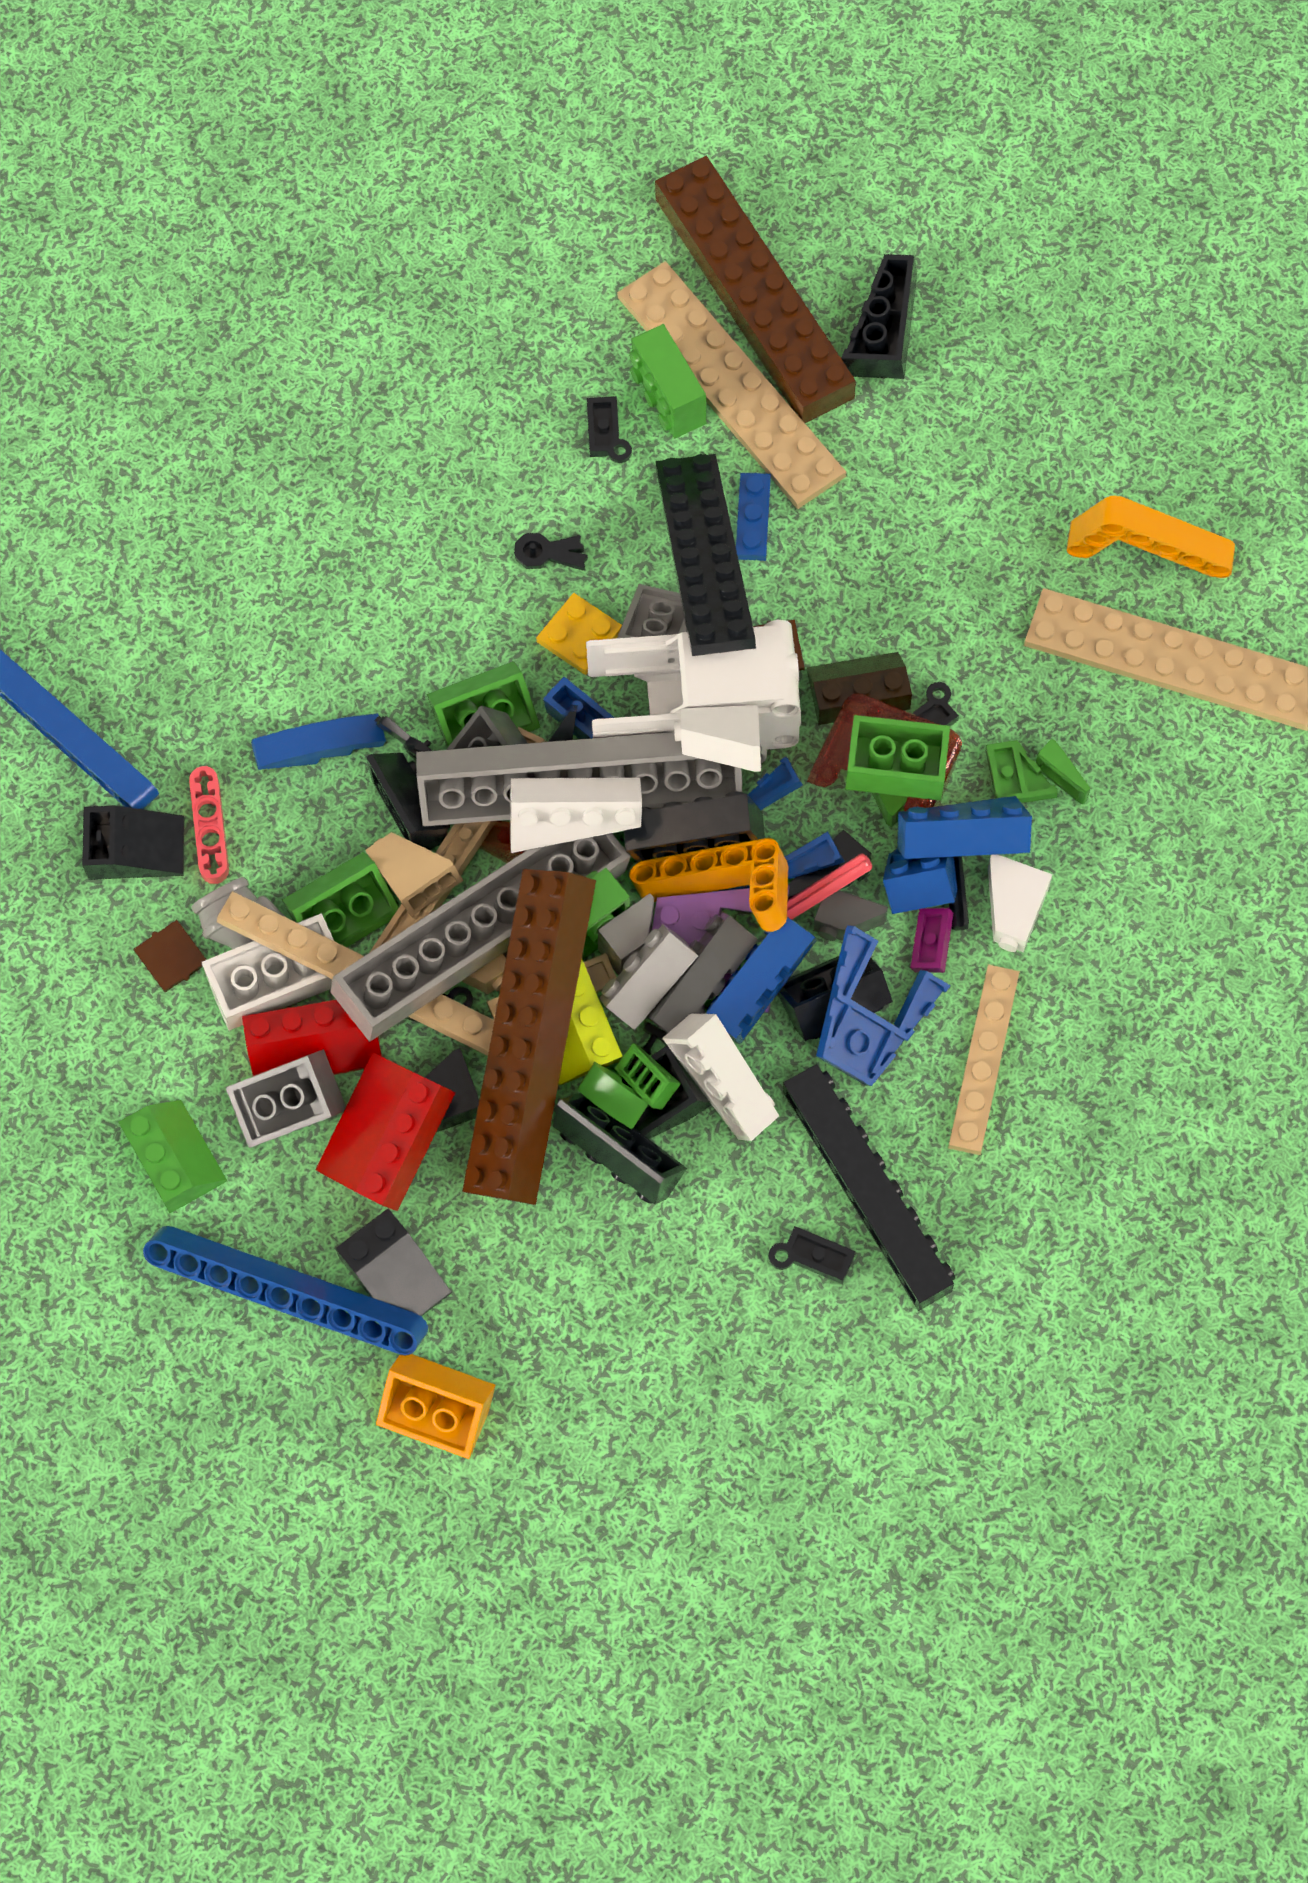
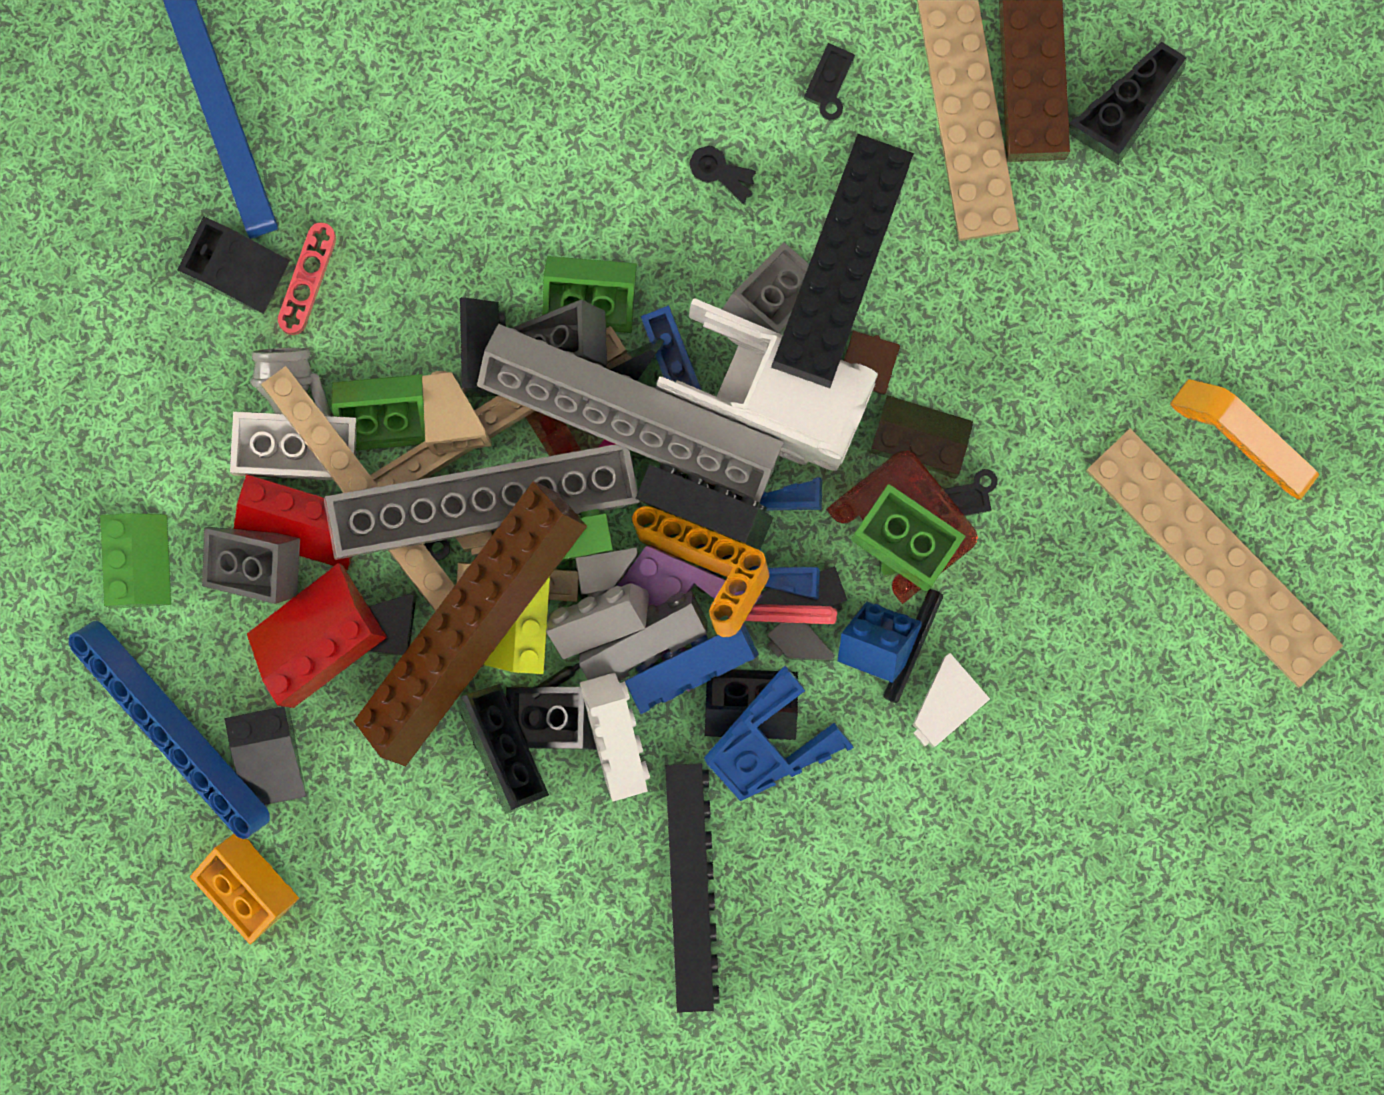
camera: 25 degrees right, 15 degrees up
(170, 956) = (219, 381): reddish brown piece -> none
(317, 740) = (434, 251): blue slope -> none
(411, 744) = (511, 300): black piece -> none
(571, 809) = (605, 442): white wedge -> none
(573, 627) = (708, 263): yellow plate -> none
(612, 1096) = (514, 698): bright green slope -> none
(664, 1090) = (566, 718): bright green slope -> none
(668, 381) = (904, 66): bright green brick -> none
(721, 735) = (761, 450): white slope -> none
(753, 516) = (915, 229): blue plate -> none
(814, 1255) = (615, 921): black hinge -> none
(932, 940) = (858, 701): magenta plate -> none
(965, 829) = (936, 625): blue wedge -> none
(984, 1060) = (847, 825): tan plate -> none
(1016, 773) = (1011, 588): bright green wing -> none
(1062, 772) = (1051, 601): bright green slope -> none

